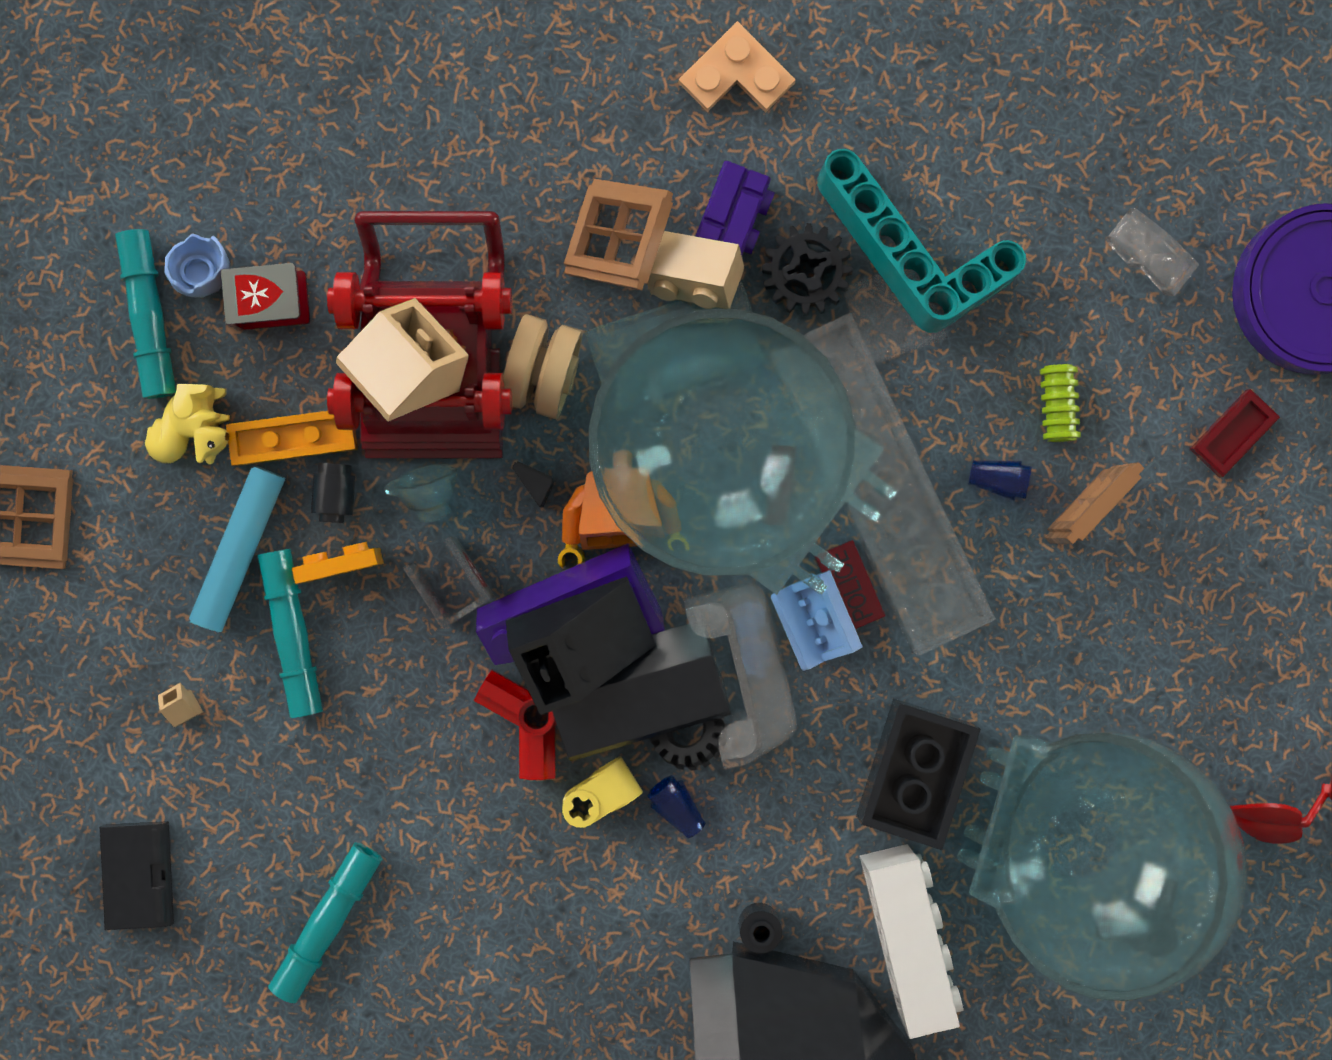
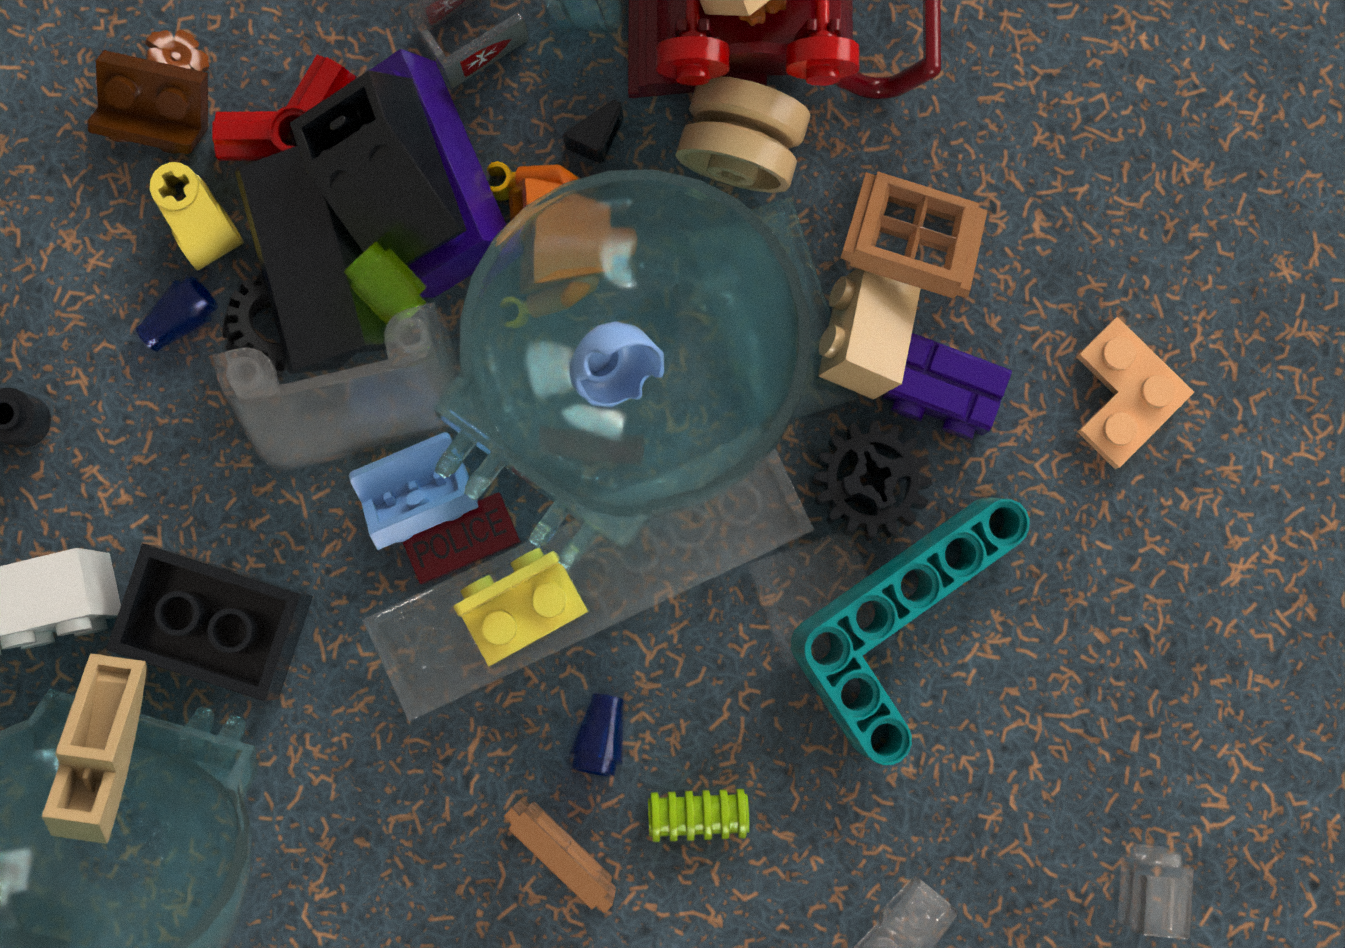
camera: 90 degrees right, 5 degrees down
(471, 812) = (176, 51): none -> dark orange plant
(512, 831) = (149, 103): none -> reddish brown bracket
(665, 639) = (385, 282): none -> clear neon green brick
(739, 459) = (614, 364): none -> light blue hair
(912, 535) = (519, 606): none -> light yellow bracket
(1018, 853) = (96, 749): none -> tan slope
(1121, 58) = (1155, 892): none -> clear brick

